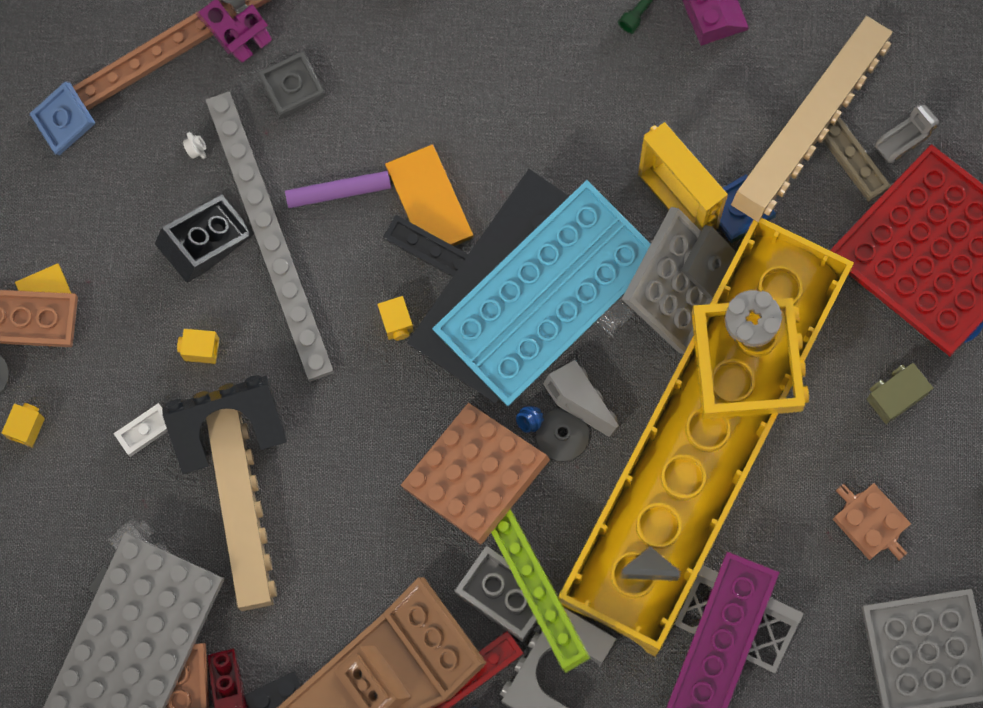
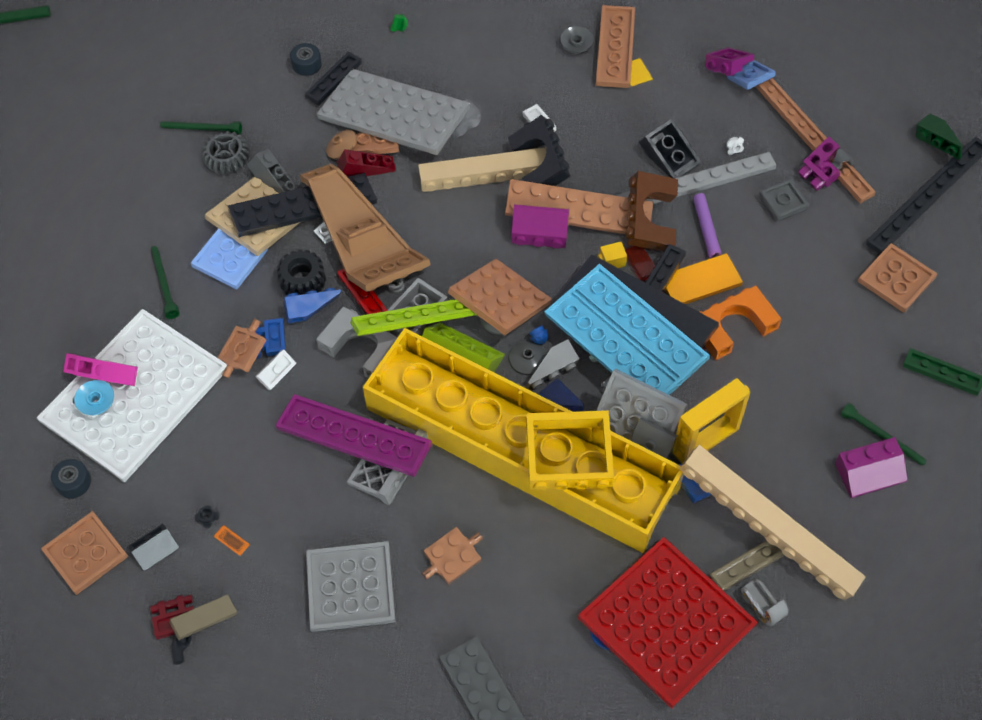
camera: 90 degrees right, 15 degrees down
(23, 424) = (544, 60): yellow brick -> none
(36, 148) = (728, 60): none -> magenta plate
(198, 346) = (594, 148): yellow brick -> none
(296, 271) = (641, 230): none -> reddish brown arch
(317, 367) = (585, 207): none -> nougat plate
(353, 420) = (540, 226): none -> magenta slope
(400, 280) = (640, 262): none -> clear red tile
(469, 136) = (748, 303): none -> orange arch
(565, 521) = (464, 346): none -> lime slope
(632, 387) = (561, 395): none -> clear blue slope
(650, 566) = (419, 380): dark grey slope -> none
(761, 304) = (599, 436): light grey plate -> none
(898, 393) = (549, 578): olive brick -> none

